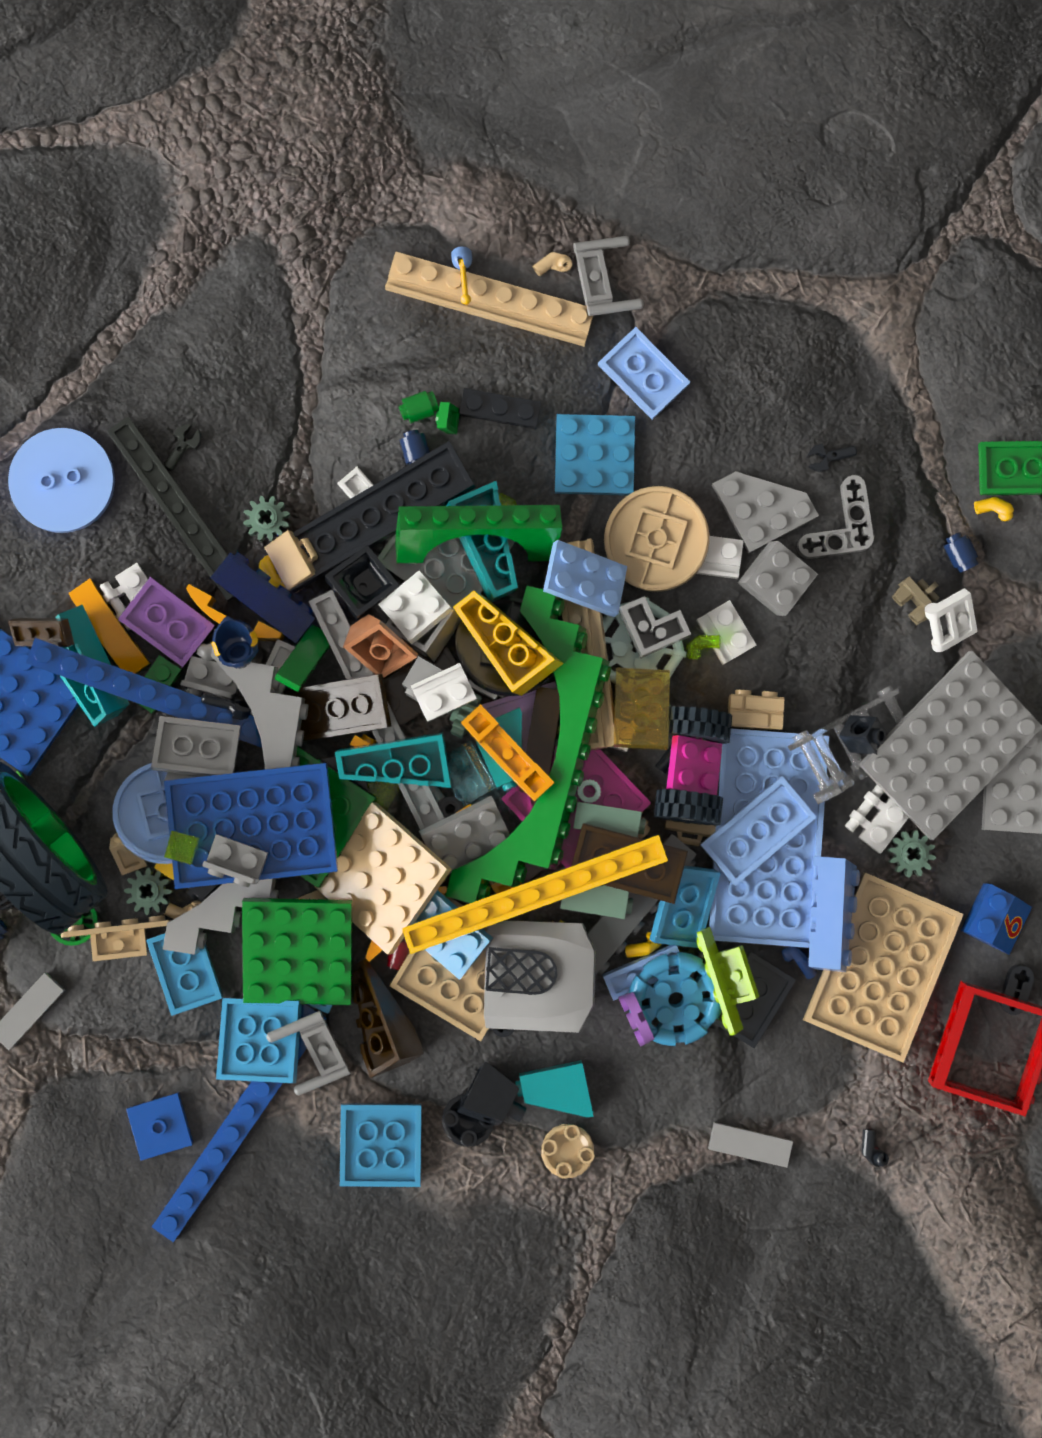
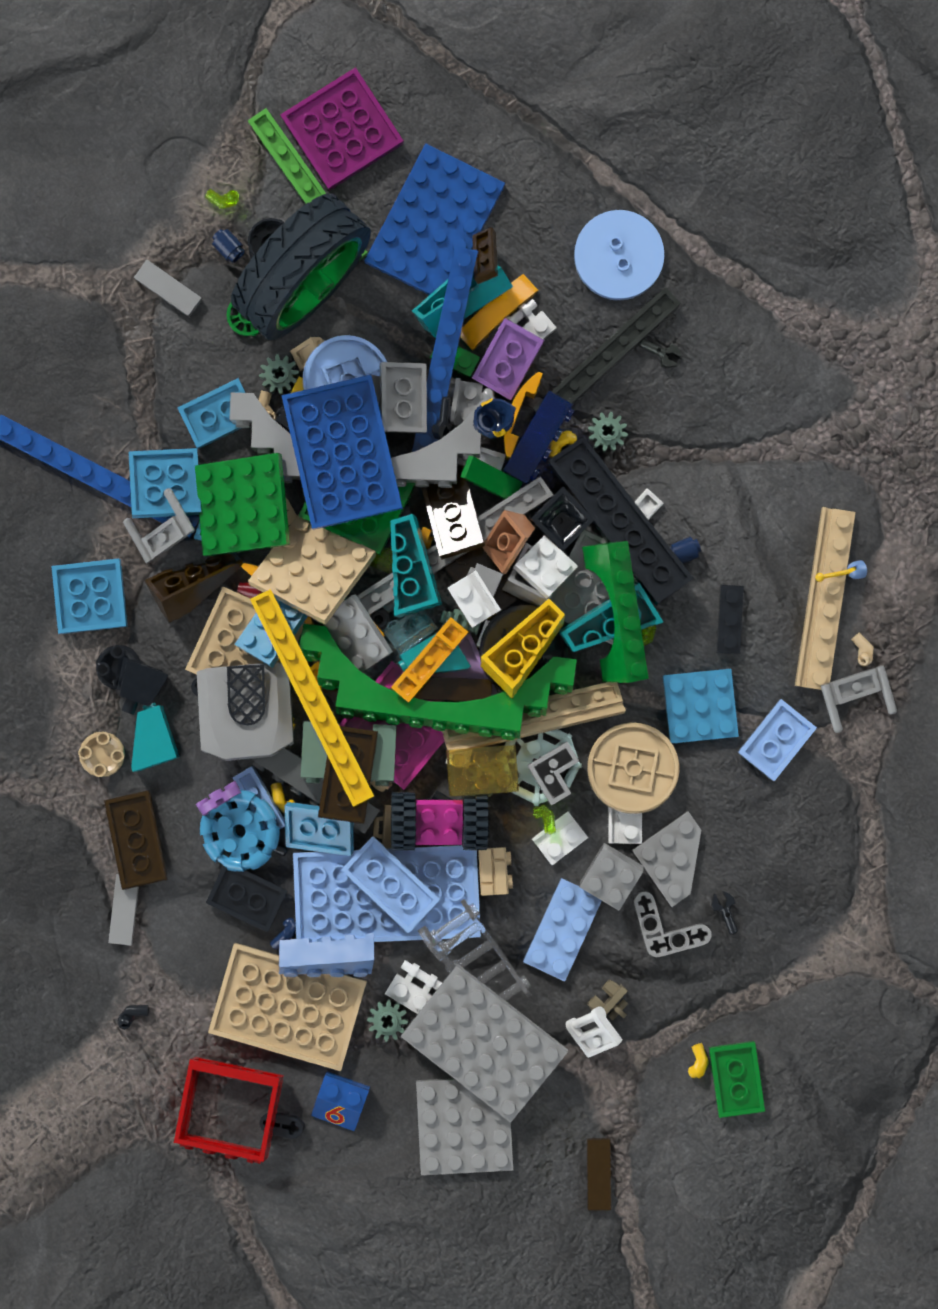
camera: 85 degrees right, 0 degrees up
(117, 941) = (234, 354): tan bracket -> none
(159, 1126) = (85, 410): blue plate -> none
(181, 847) = (316, 396): clear neon green plate -> none
(235, 860) = (310, 442): light grey bracket -> none
(291, 559) = (574, 457): tan piece -> none
(418, 406) = (721, 549): green brick -> none
(447, 418) = (715, 575): green plate -> none
(585, 578) = (588, 709): light blue plate -> none
(597, 791) = (407, 742): light aqua axle -> none
(672, 1122) = (136, 840): none -> dark brown tile
(730, 977) = (261, 874): lime bracket -> none
(830, 642) = (562, 930): none -> light blue plate
(863, 734) = (483, 964): black brick -> none
(961, 552) = (655, 1035): dark blue brick -> none

